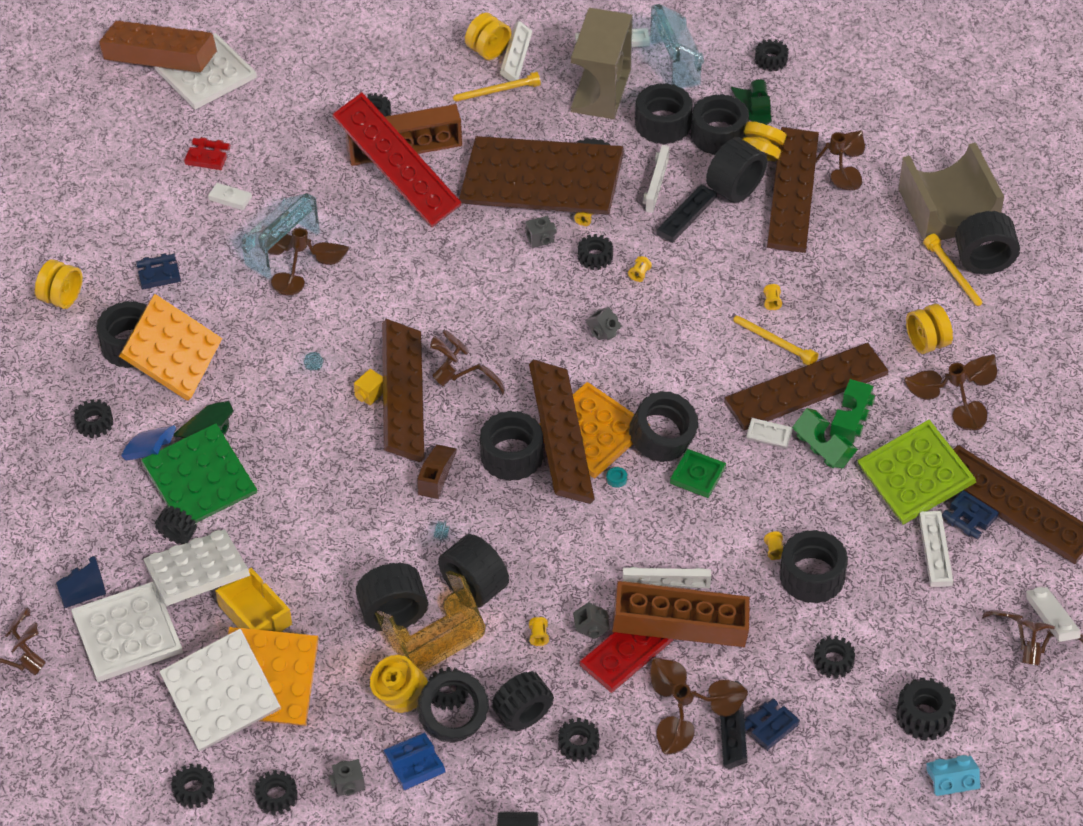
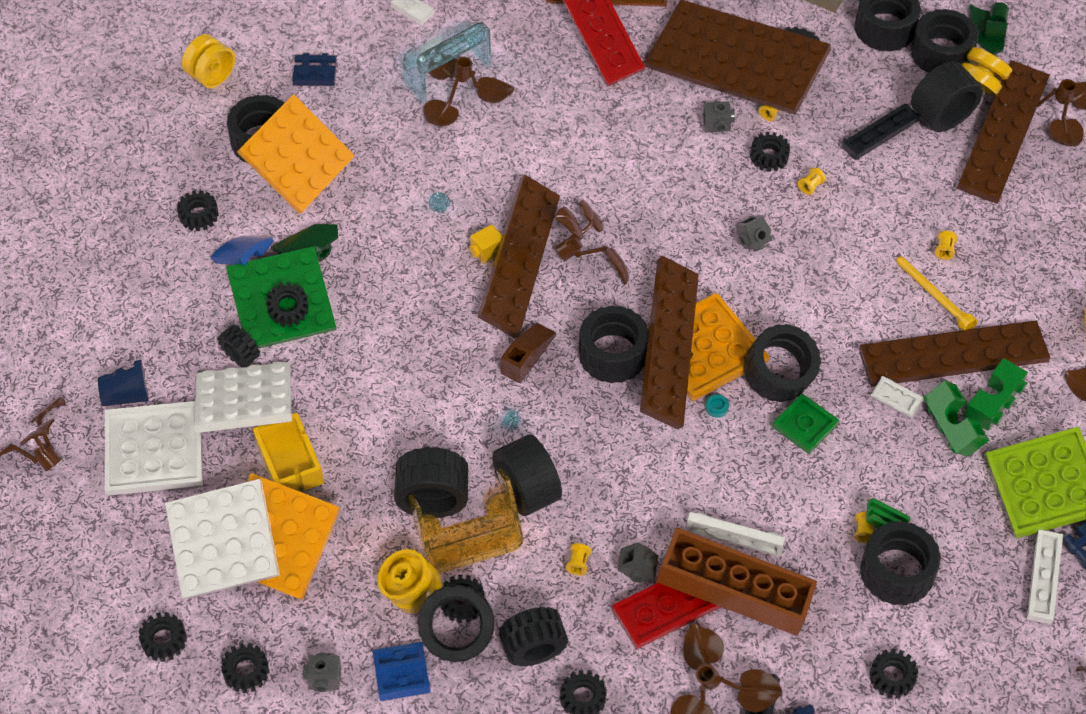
camera: 15 degrees right, 5 degrees up
(209, 490) = (287, 292): none -> black tyre
(661, 164) = (870, 69): white plate -> none
(784, 530) = (883, 511): none -> green tile

